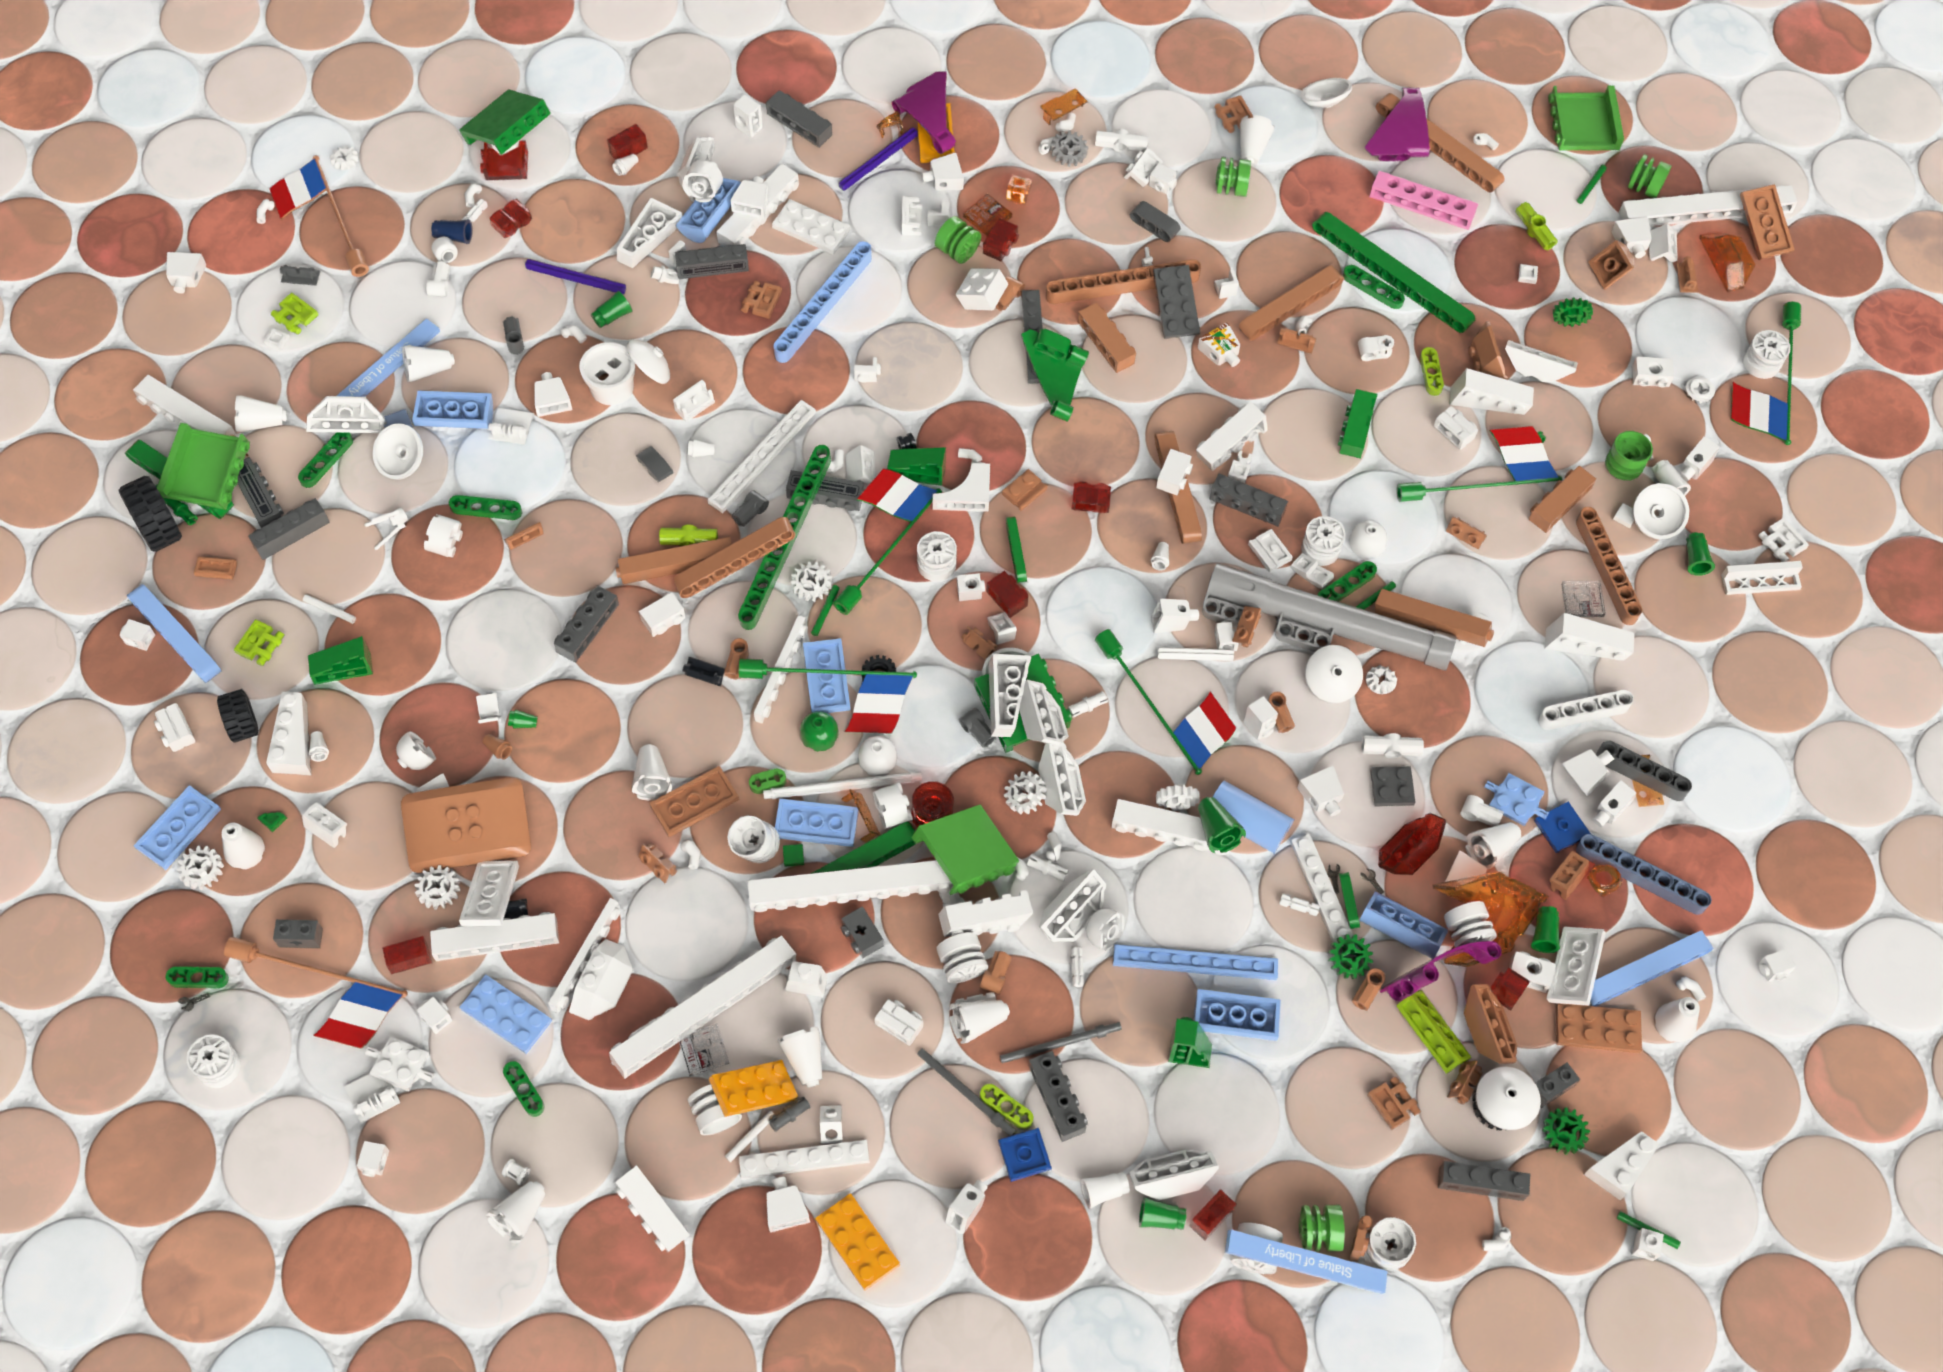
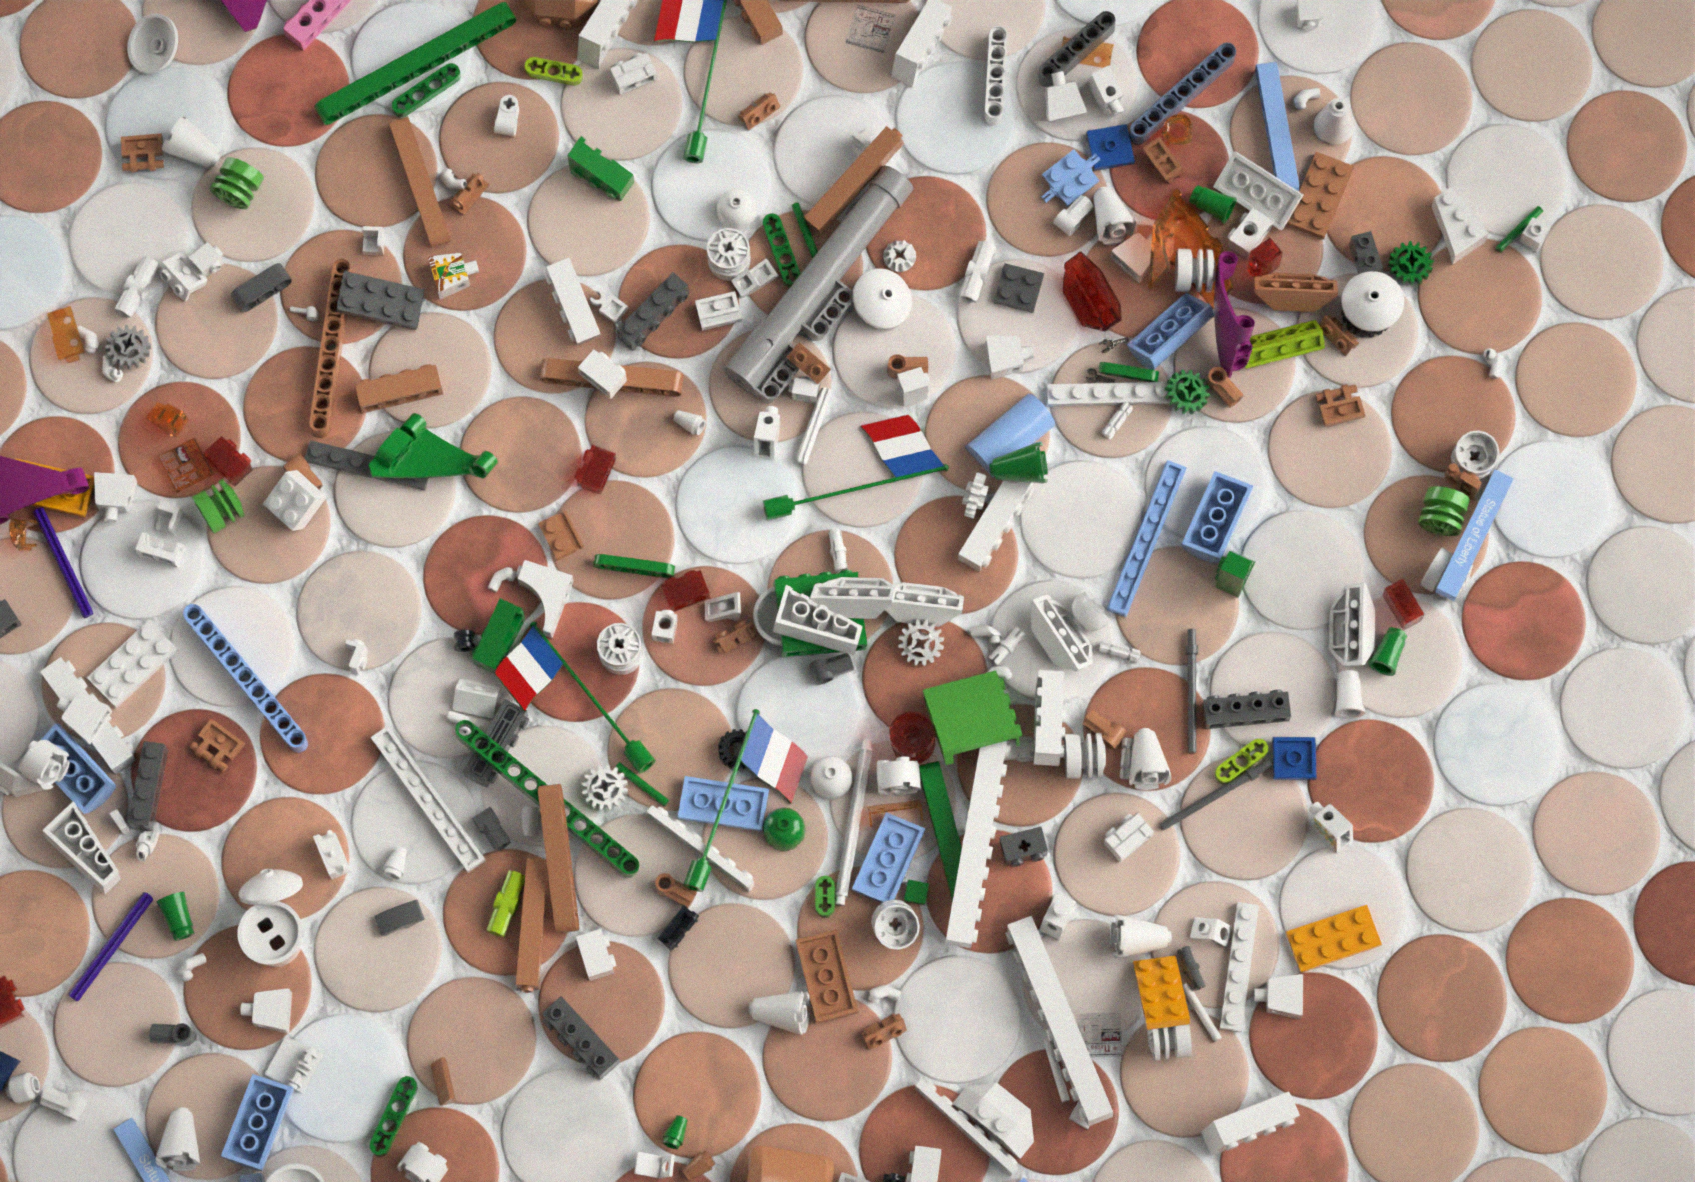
camera: 70 degrees left, 10 degrees up
(1484, 1181) = (1437, 353): dark grey brick -> none

